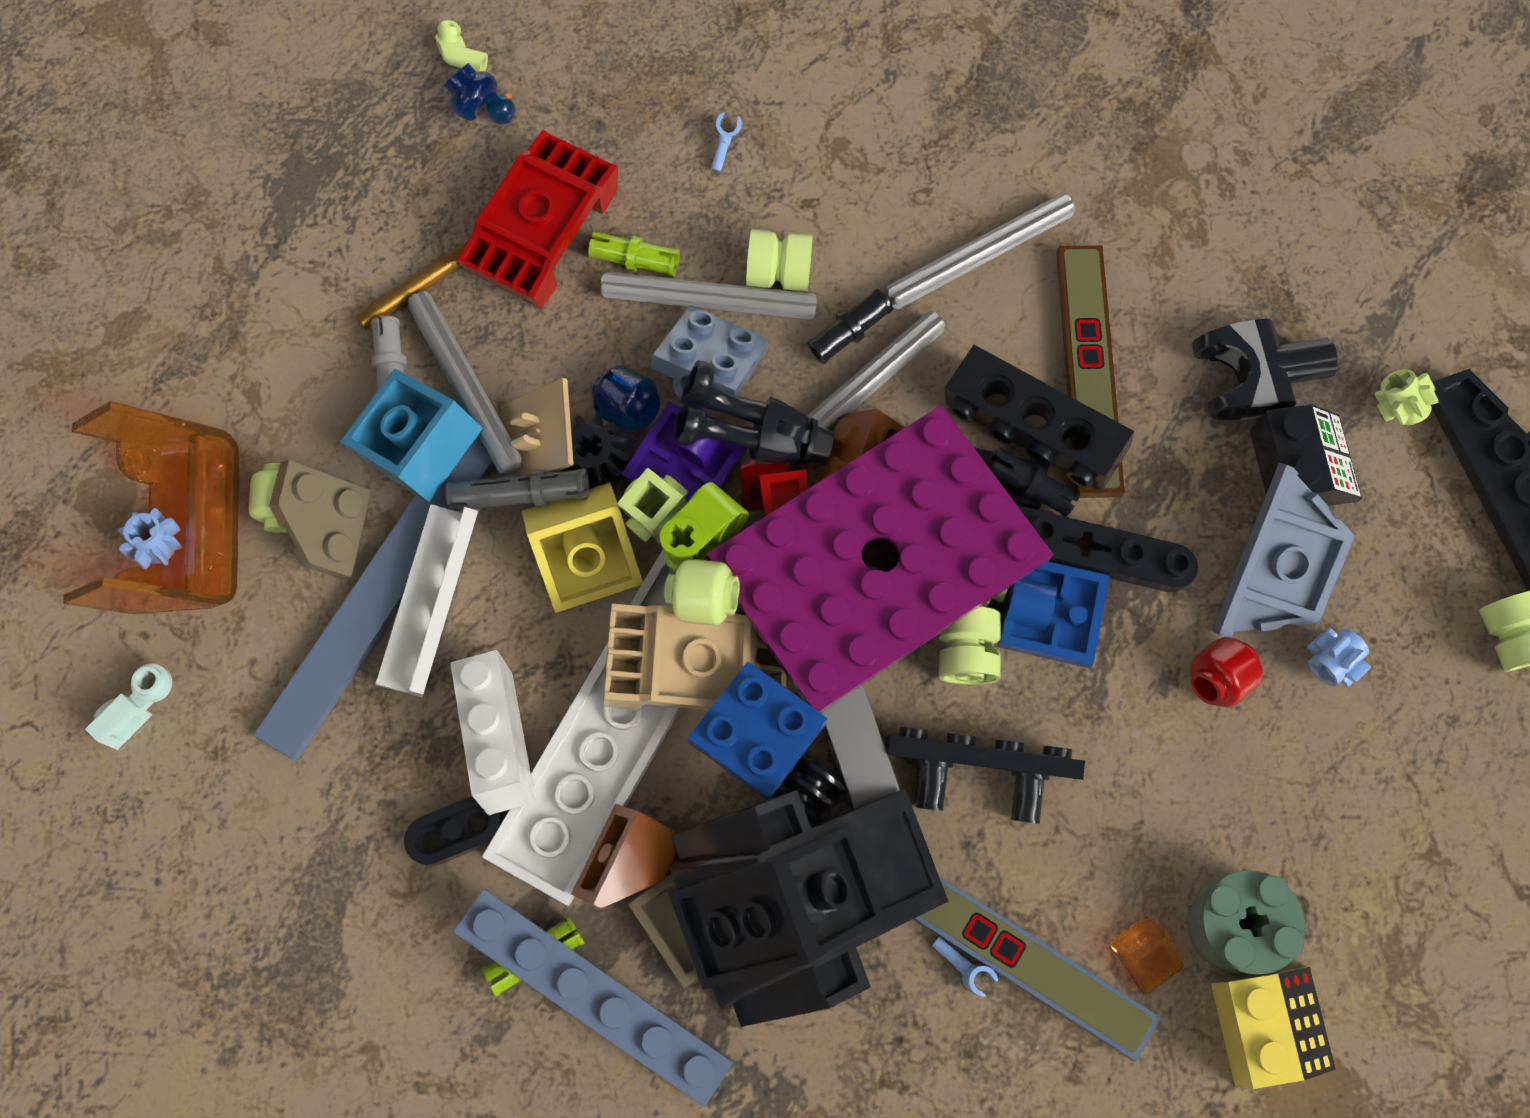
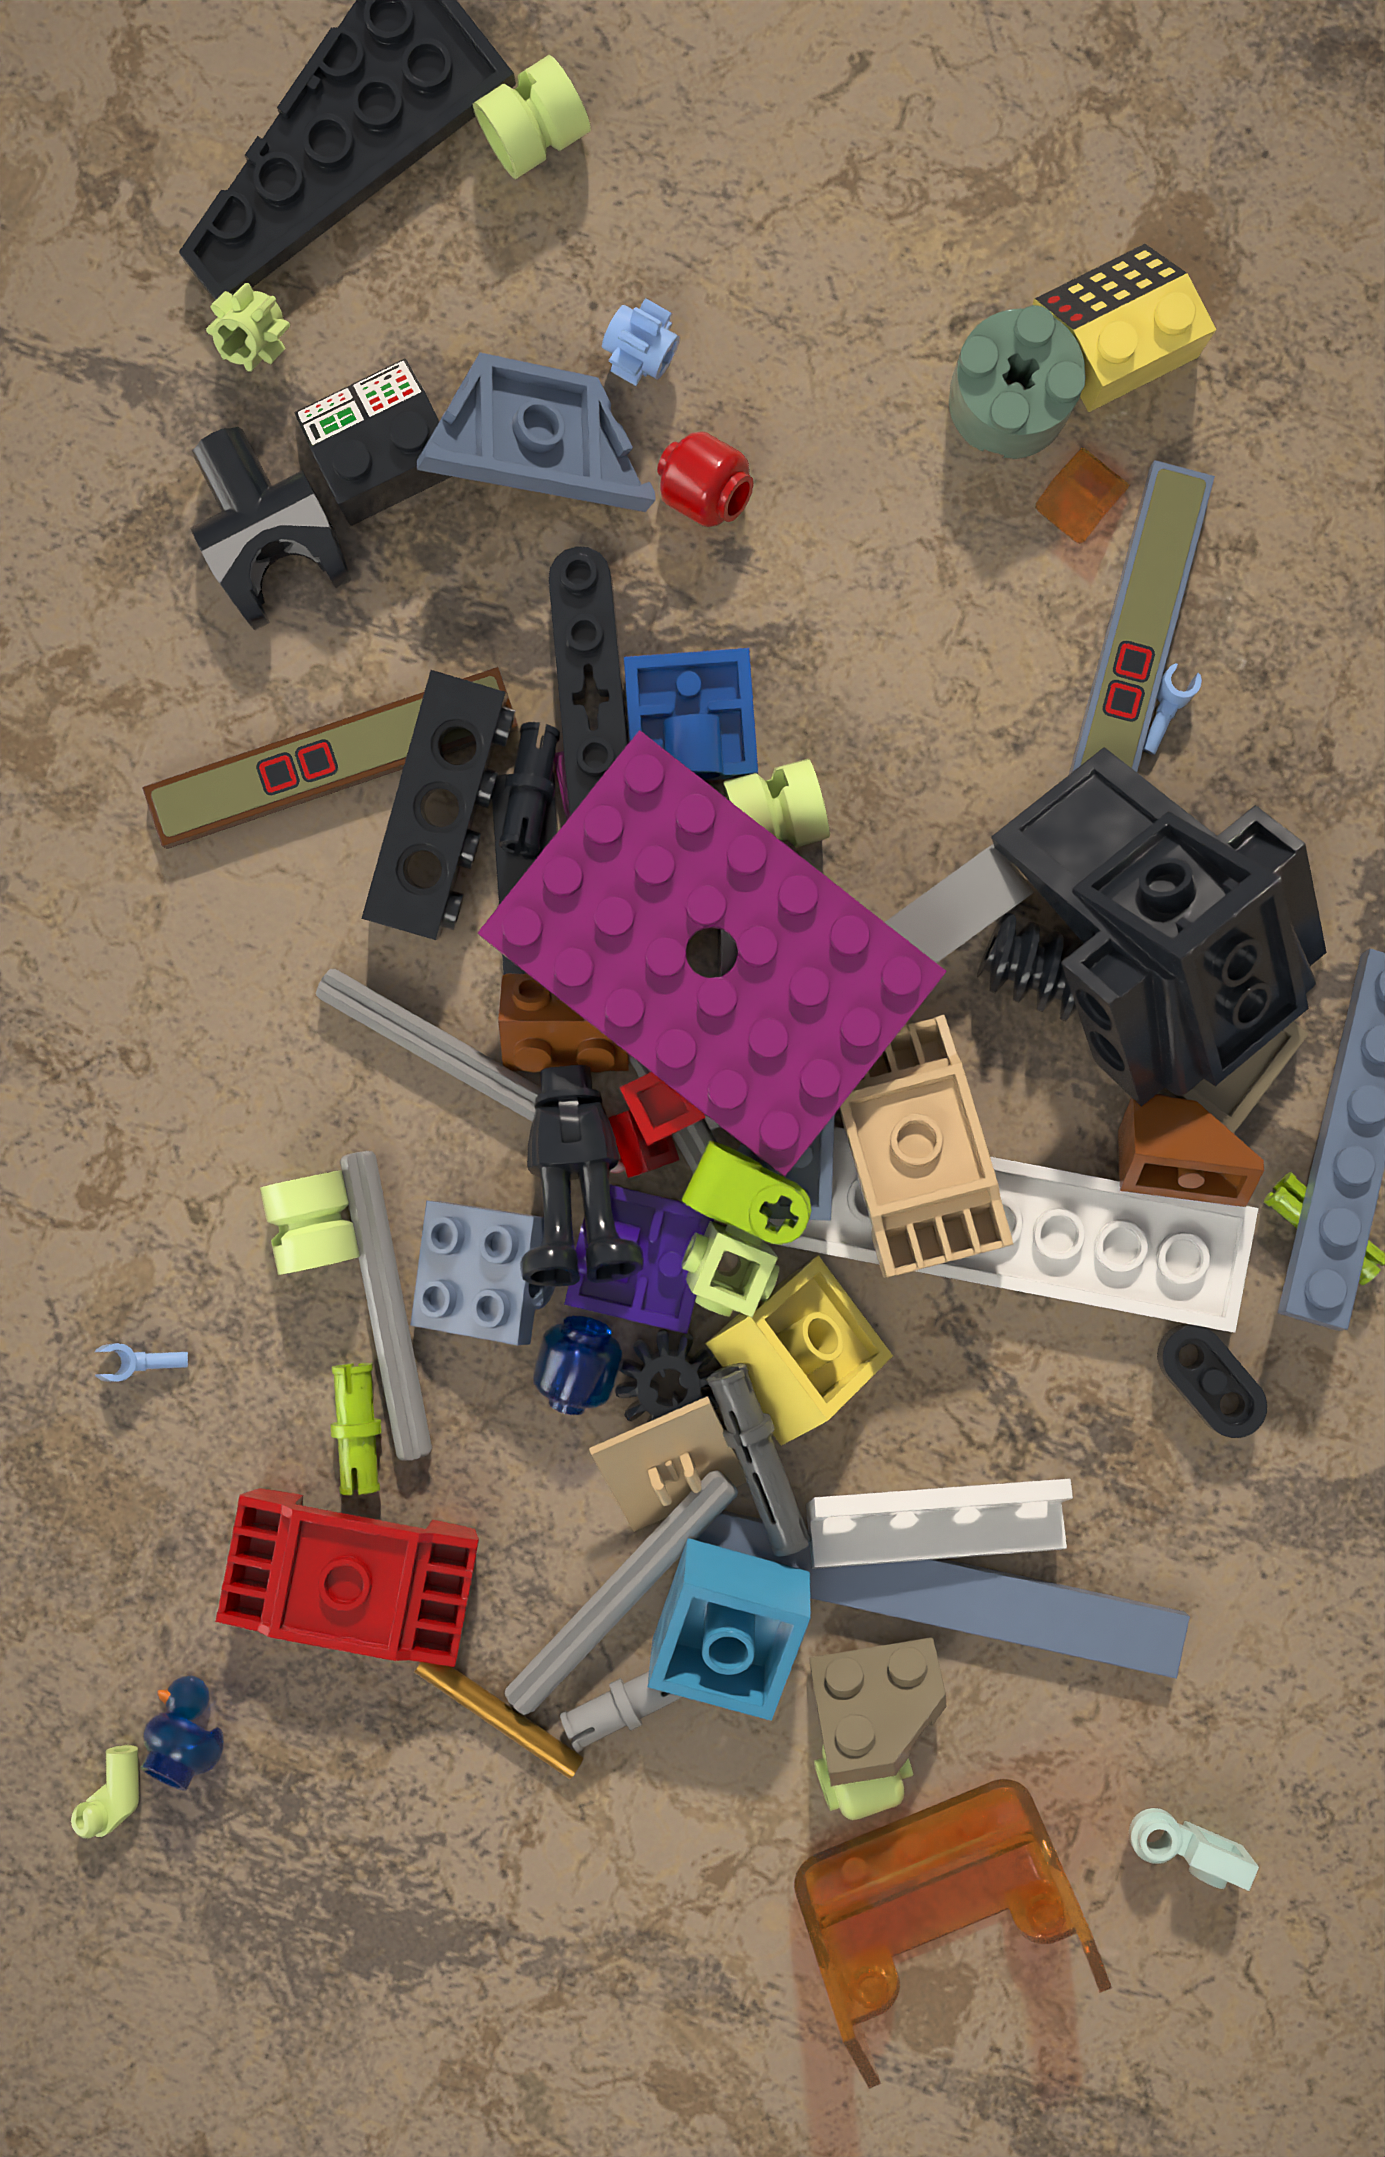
camera: 105 degrees left, 15 degrees up
(149, 538) = (977, 1937): light blue gear -> none
(492, 733) = (1085, 1374): white brick -> none
(702, 592) = (841, 1163): yellowish green head -> none
(757, 730) = (990, 1038): blue plate -> none
(850, 326) = (373, 1096): black pin -> none
(980, 250) = (200, 952): light grey axle -> none
(1029, 768) = (914, 778): black plate -> none

